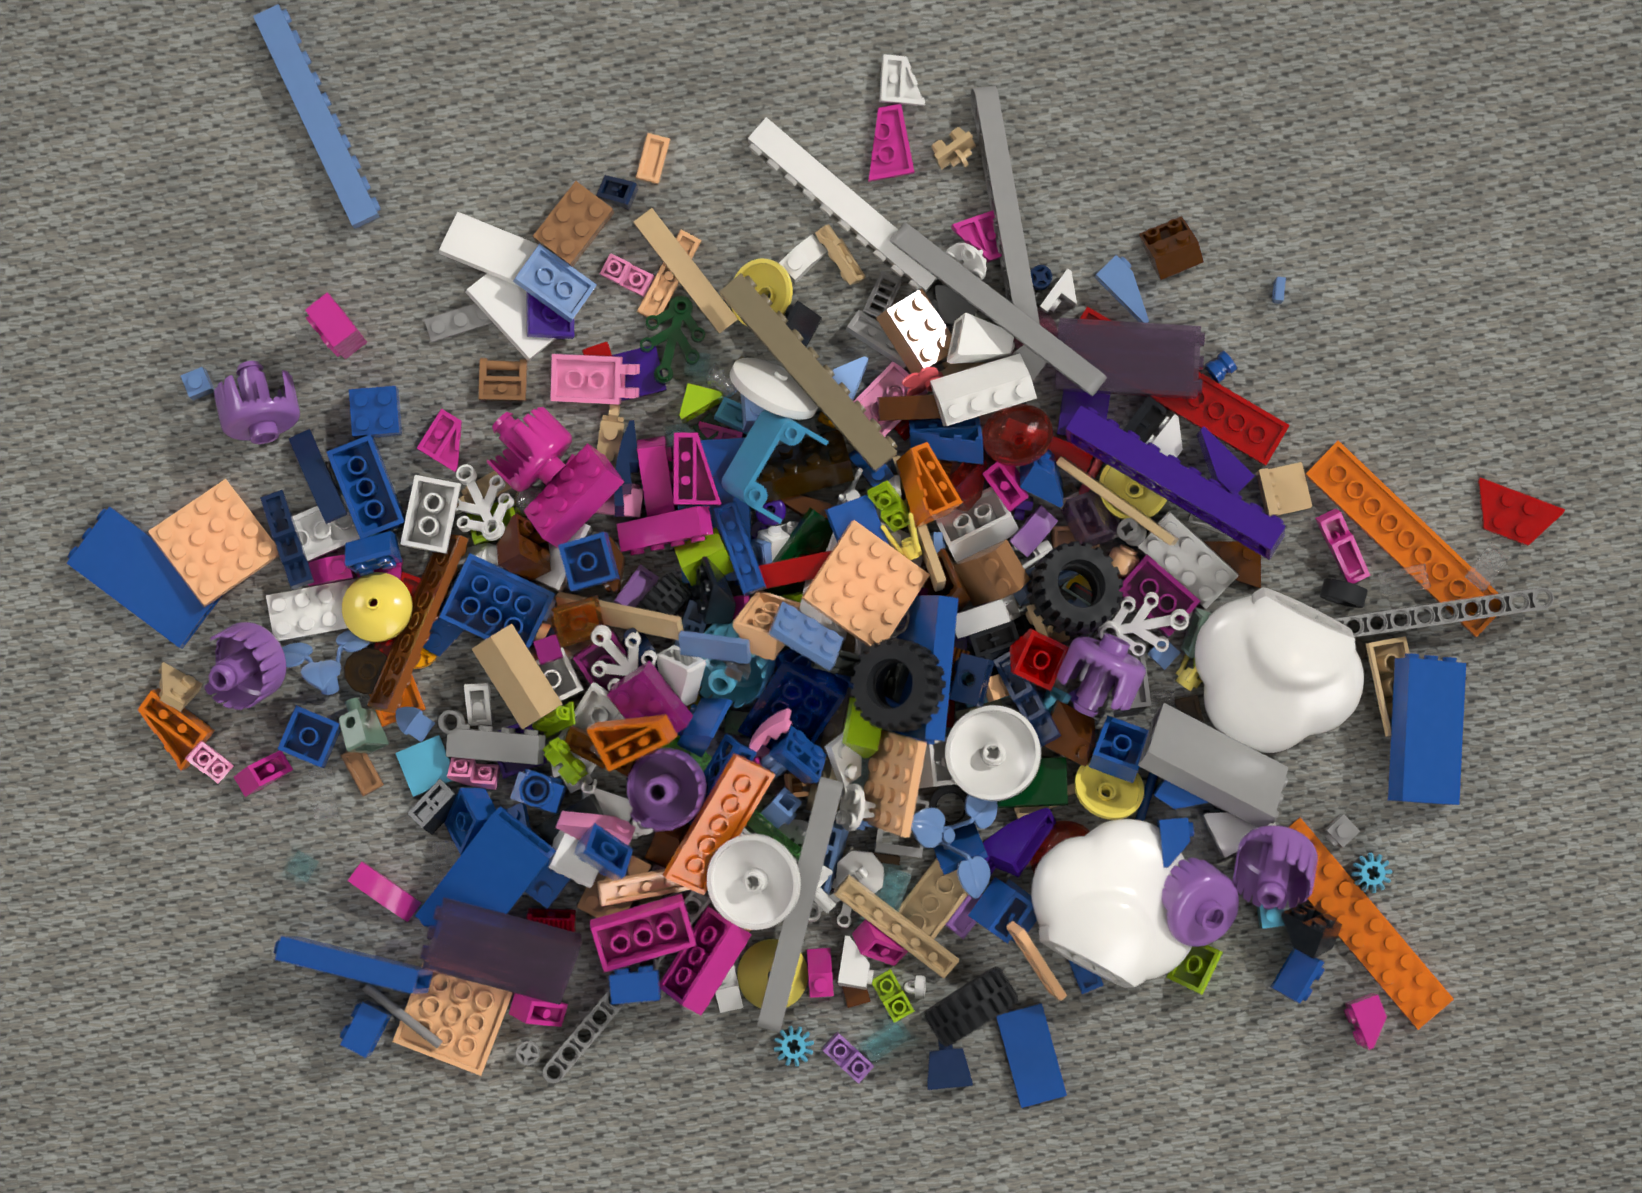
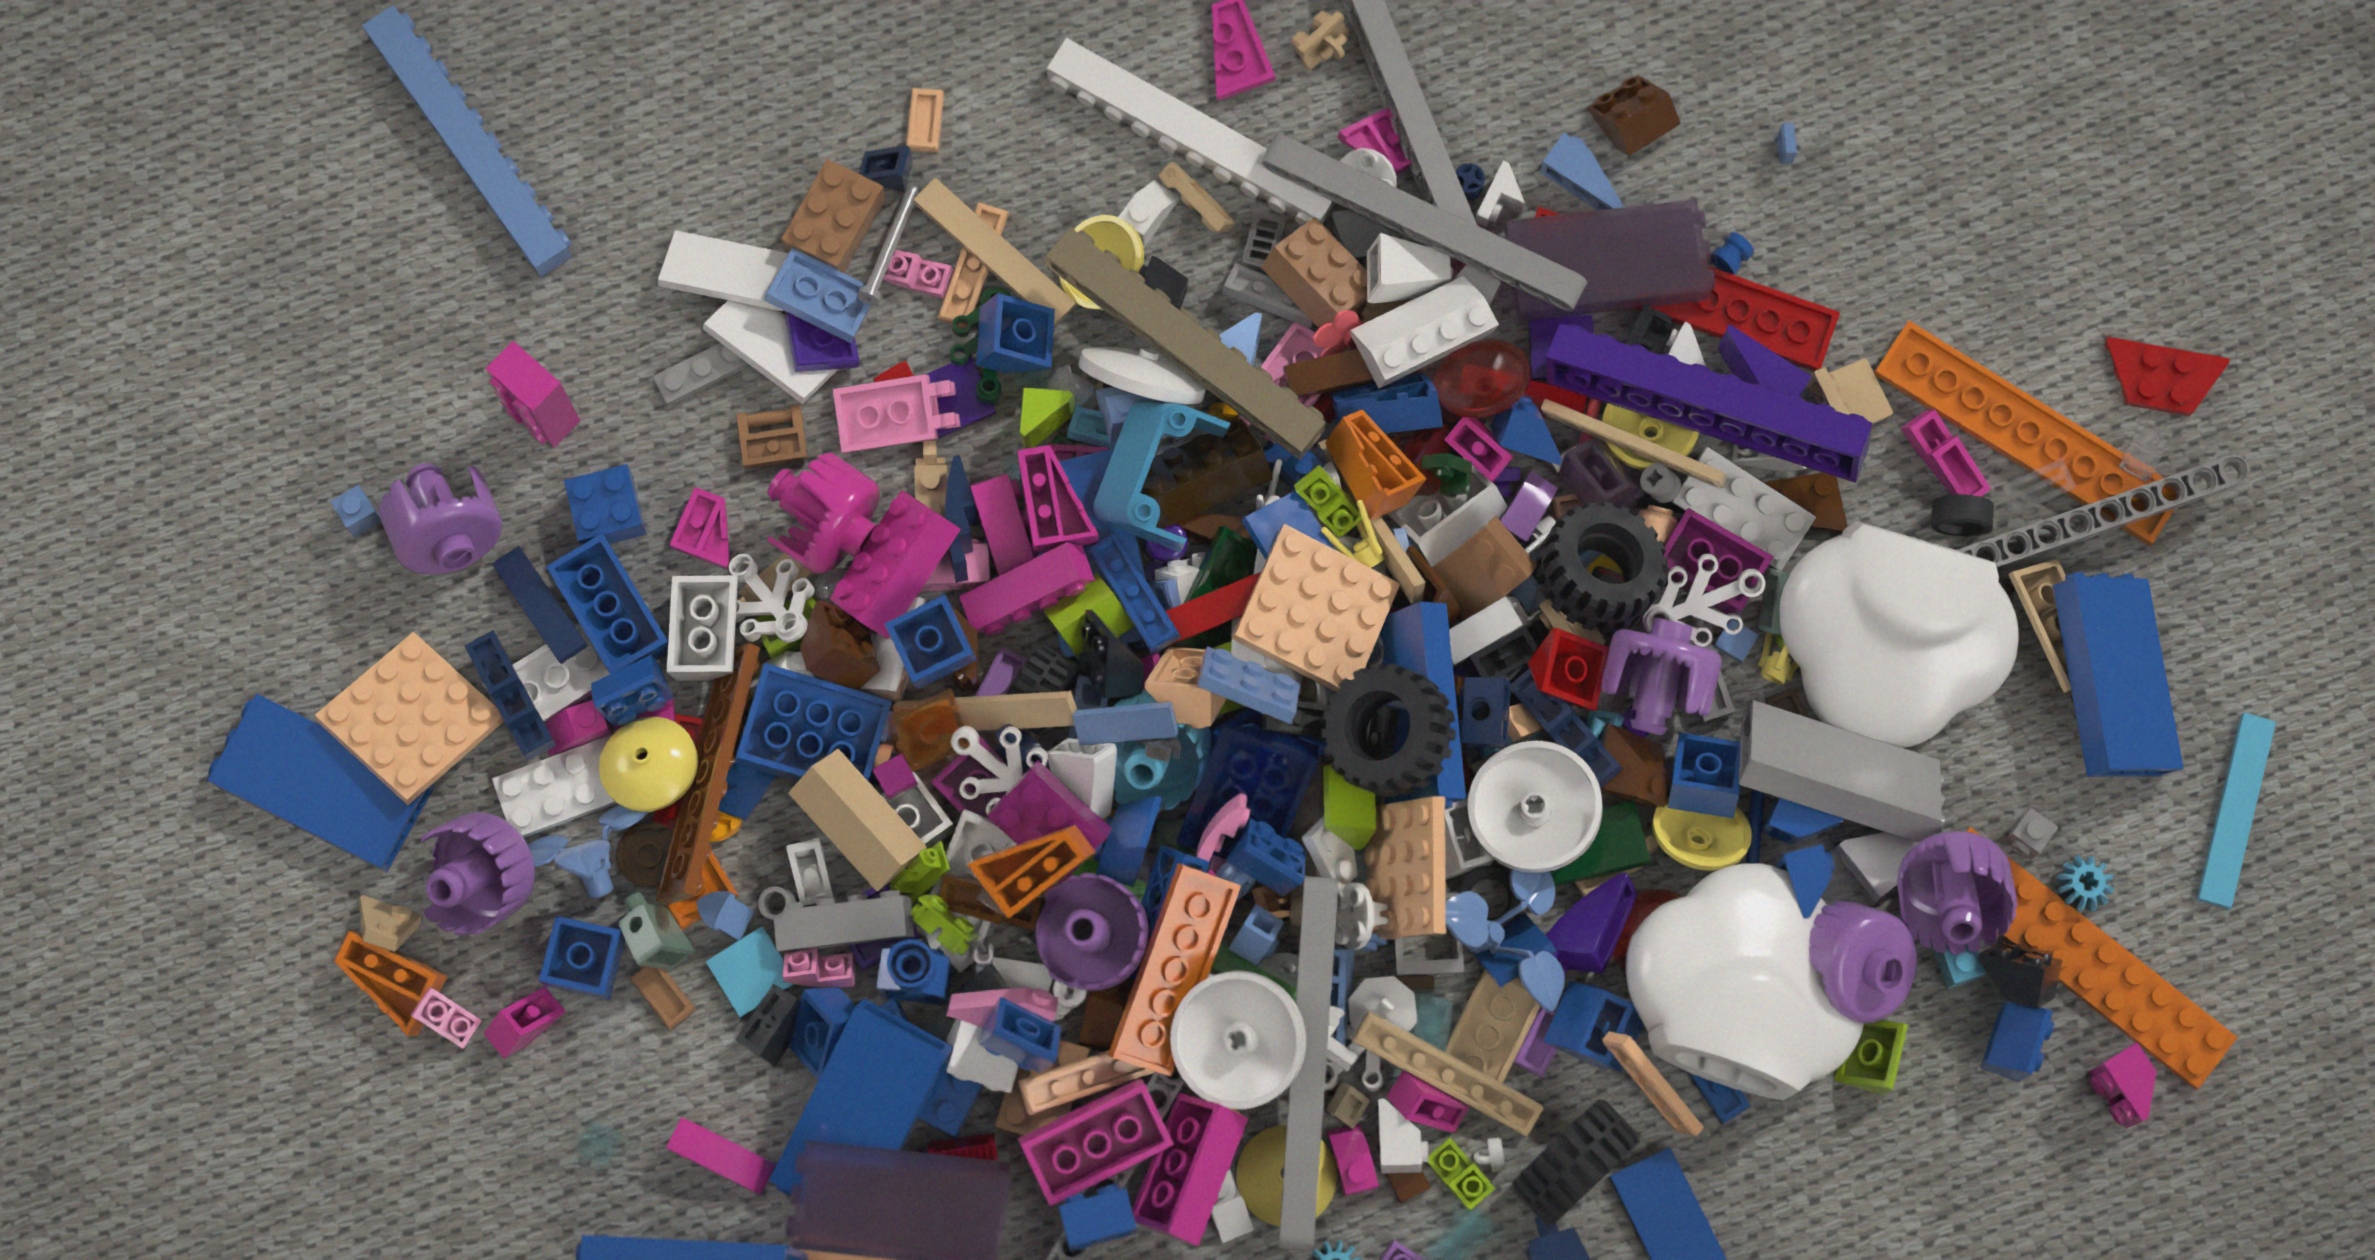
camera: 10 degrees left, 10 degrees down
(590, 288) = (869, 294): none -> light grey bar
(689, 339) = (1015, 335): none -> blue slope
(823, 934) = (1347, 1105): none -> dark tan tile
(983, 500) = (1452, 470): none -> dark green bracket
(1491, 839) = (2236, 811): none -> medium azure tile

